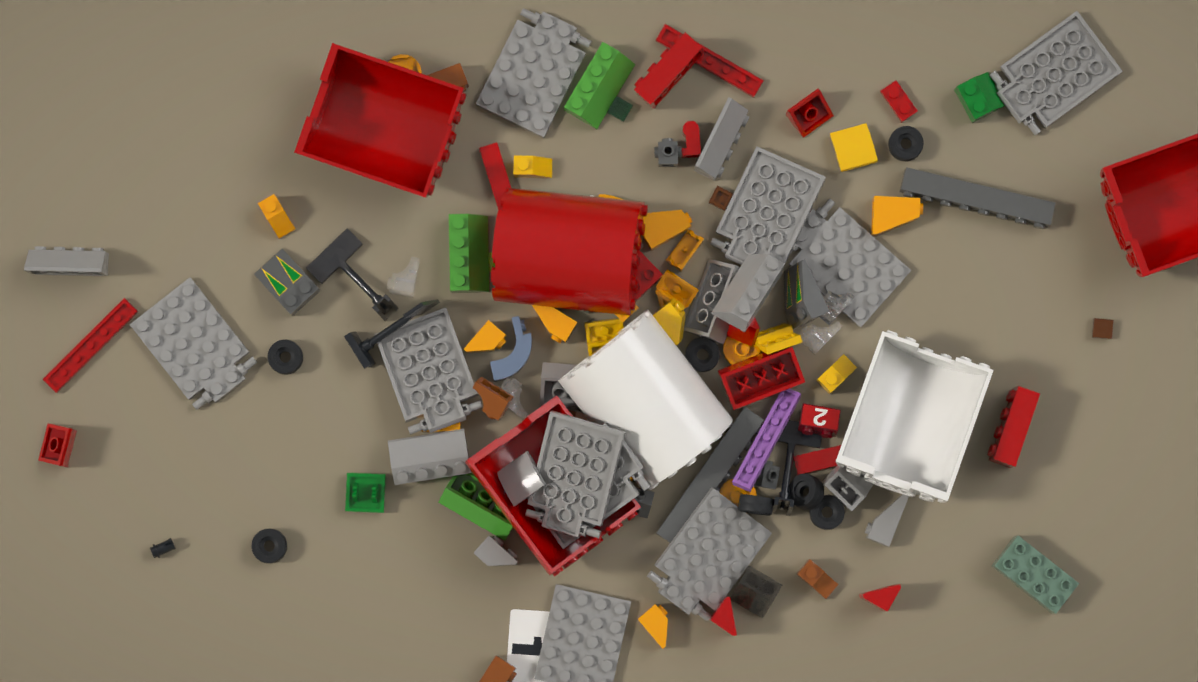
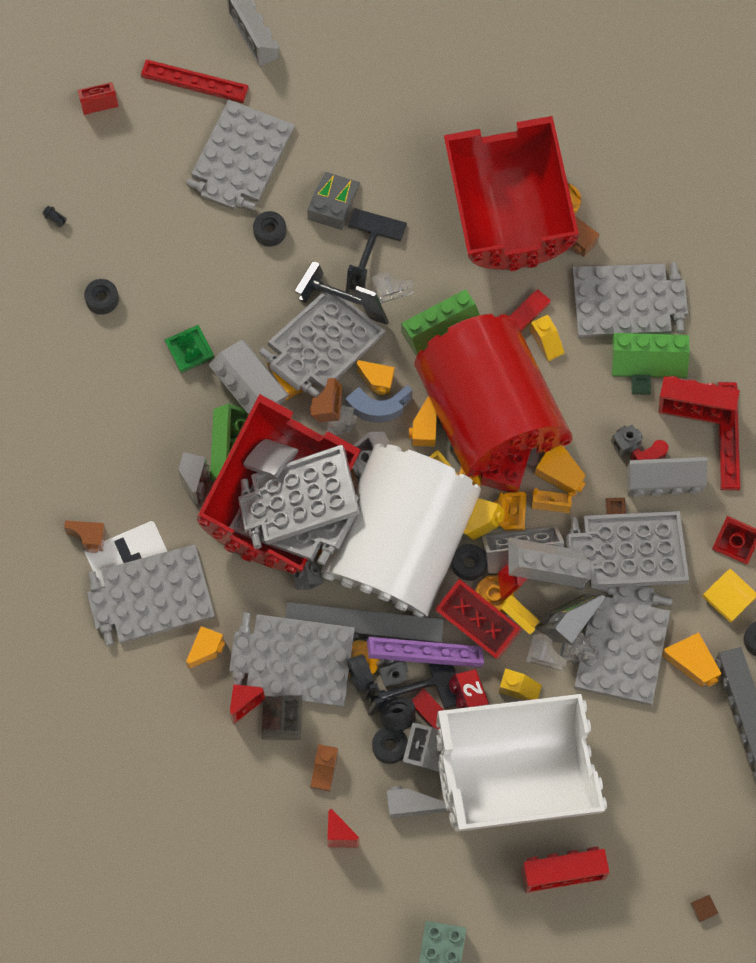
camera: 60 degrees right, 15 degrees down
(276, 216) = (384, 162): light orange slope -> none

